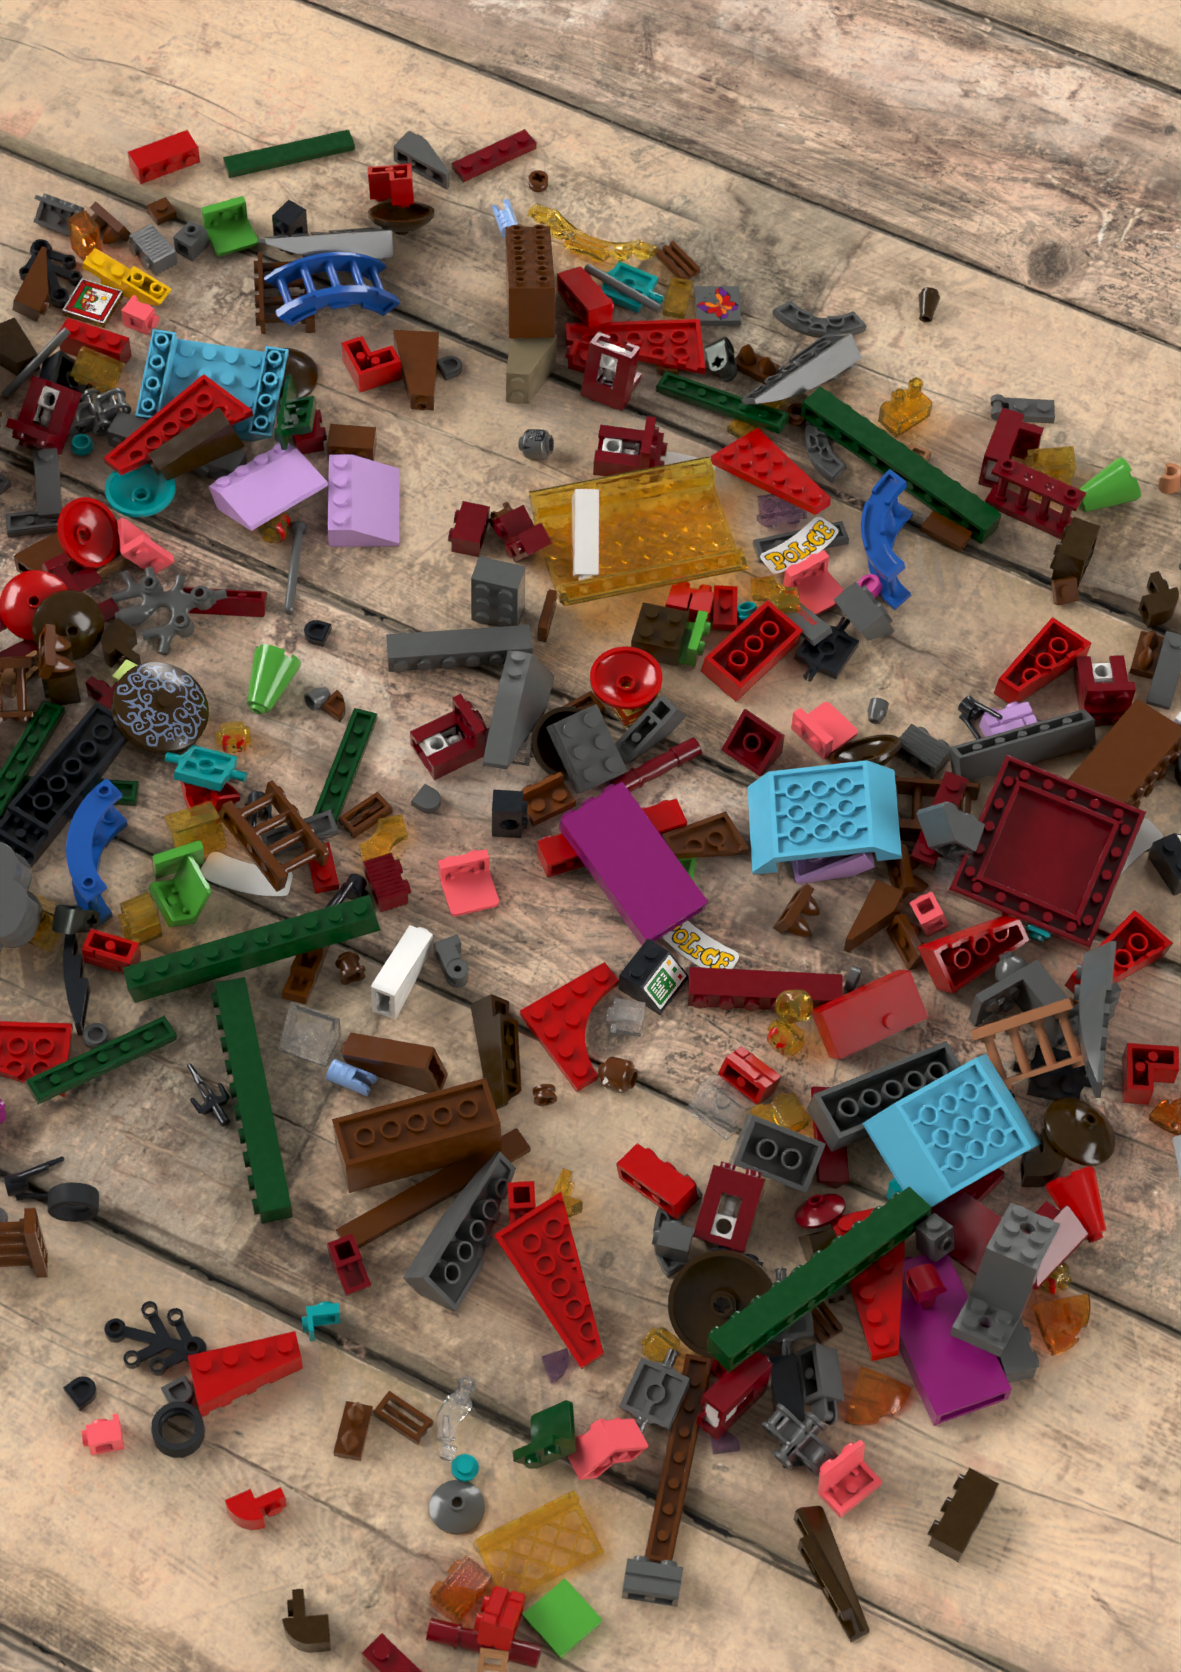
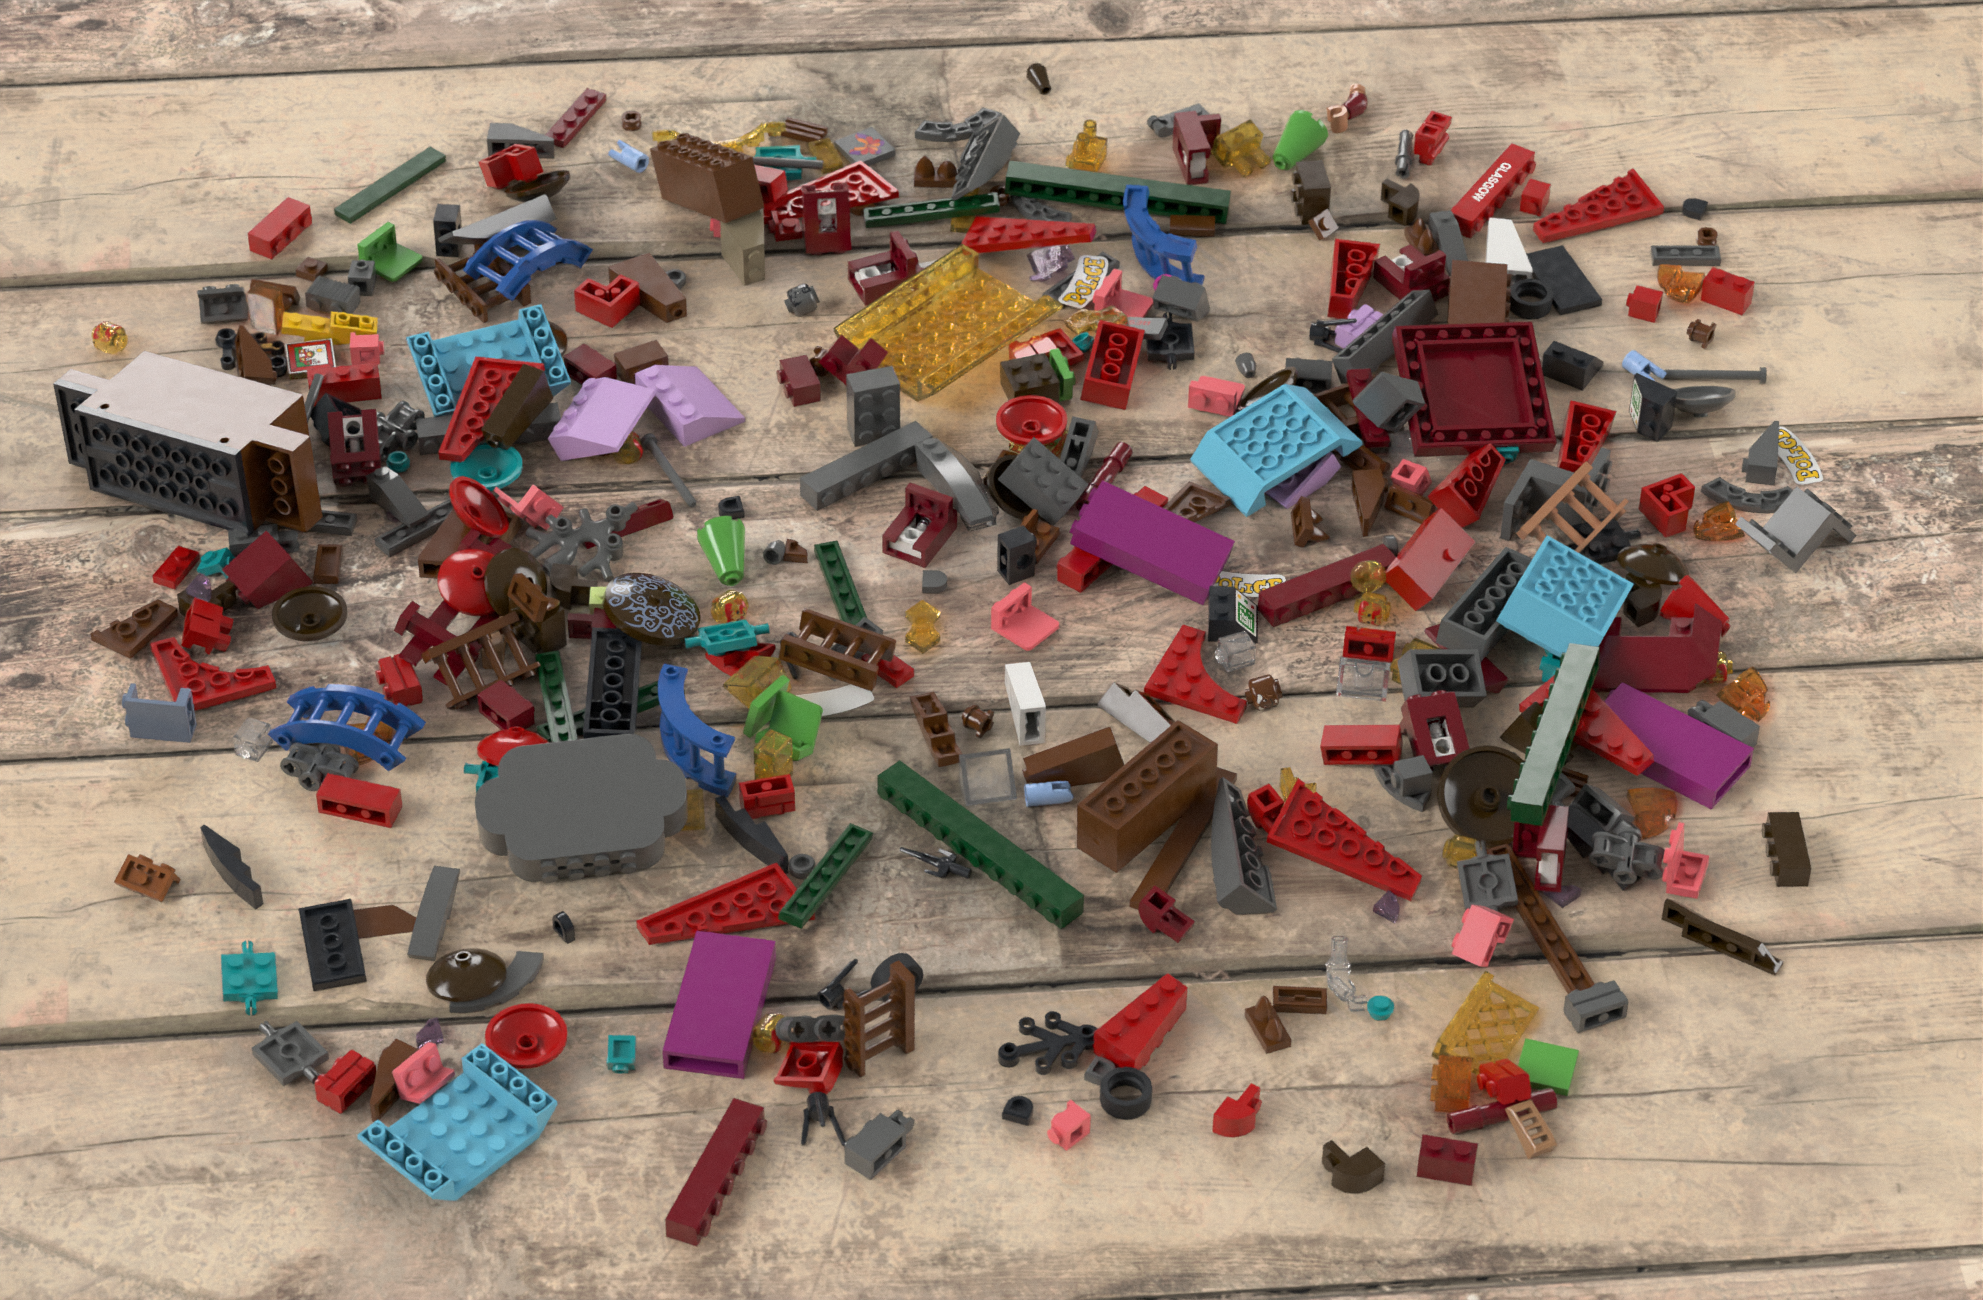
camera: 30 degrees left, 15 degrees down
(73, 919) = (716, 783): pearl dark grey piece -> none
(97, 370) = (371, 394): clear yellow brick -> none
(251, 949) = (888, 737): dark green brick -> none
(295, 414) = (583, 353): dark green bracket -> none
(320, 1314) = (1174, 960): teal bracket -> none
(352, 889) = (930, 667): black plant -> none
(368, 817) = (886, 627): reddish brown tile -> none
(386, 881) = (953, 649): dark red brick -> none
(453, 967) = (1058, 679): dark grey leg -> none
(457, 1519) = (1396, 1038): dark grey dish -> none
(544, 1094) = (1217, 732): reddish brown bush -> none
(547, 615) = (919, 410): reddish brown tile -> none
(550, 1435) = (1432, 947): dark green bracket -> none
(585, 533) = (909, 331): white slope -> none
(722, 359) = (906, 180): pearl dark grey piece -> none
(754, 743) = (1170, 424): dark red slope -> none
(820, 1210) = (1504, 706): dark red dish -> none
(925, 1284) = (1636, 704): dark red brick -> none
(934, 1237) = (1613, 674): dark grey brick -> none
(1005, 1279) = (1694, 669): dark grey bracket -> none
(1008, 965) = (1505, 481): dark grey brick -> none
(1027, 510) = (1250, 185): dark red fence -> none
(1094, 1009) = (1595, 441): dark grey wedge -> none

